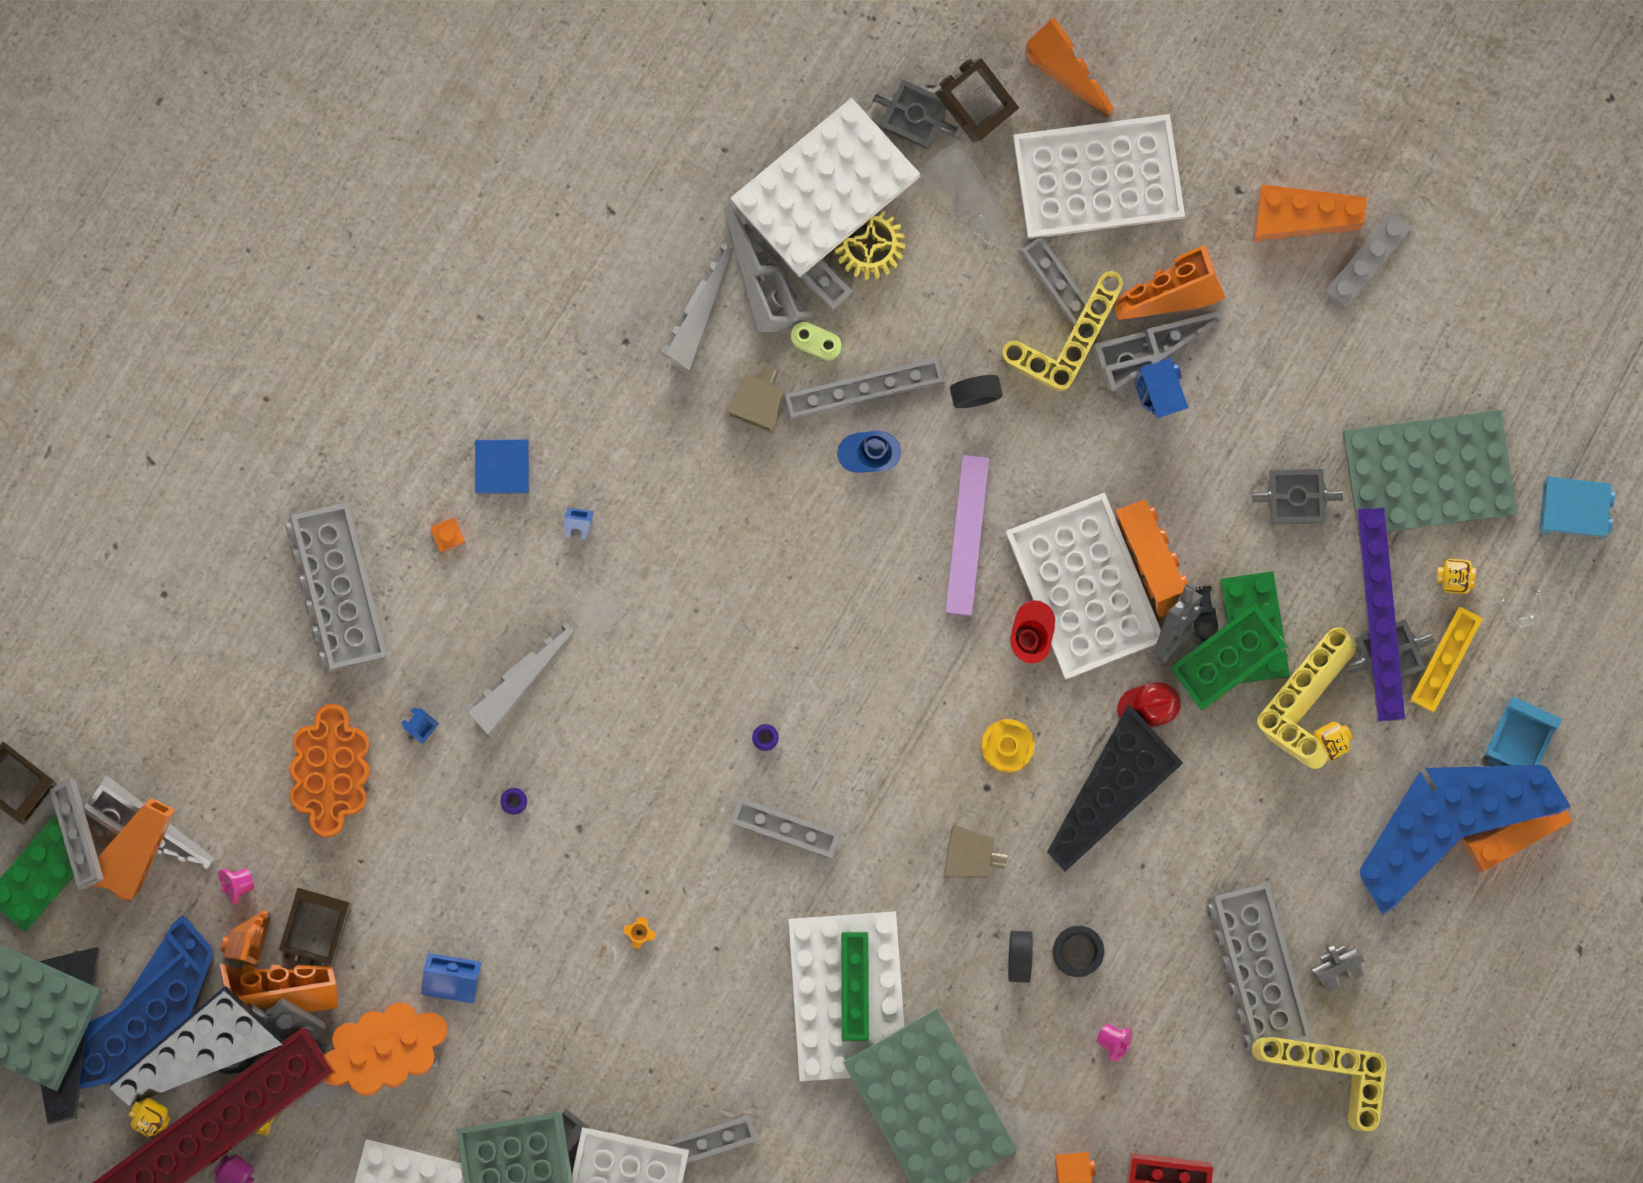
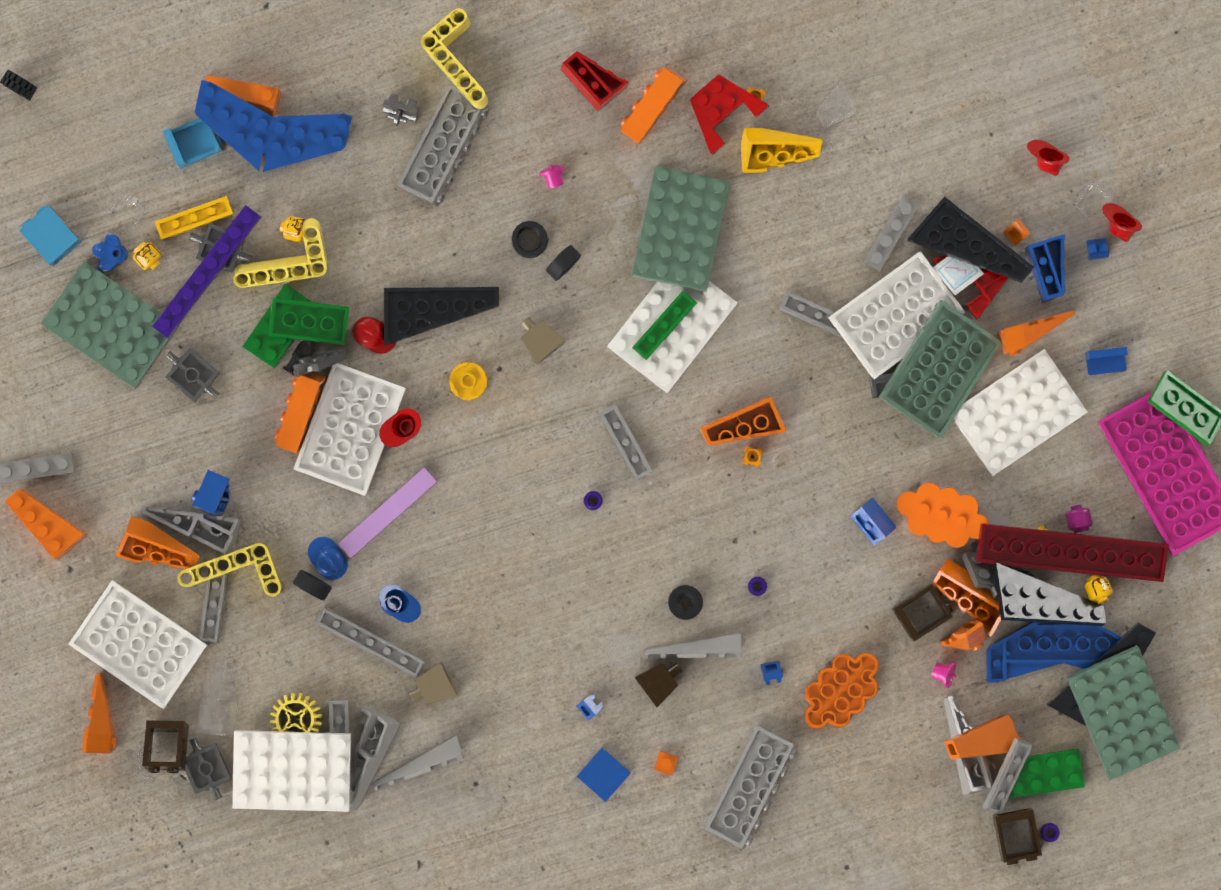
camera: 130 degrees left, 5 degrees up
(528, 610) = (659, 682): none -> dark brown torso
(571, 702) = (685, 591): none -> black tyre
(676, 962) = (744, 423): none -> orange wedge
(815, 341) = (374, 690): yellowish green plate -> none
(986, 434) = (327, 558): none -> blue piece
(1502, 545) = (107, 251): none -> blue plate

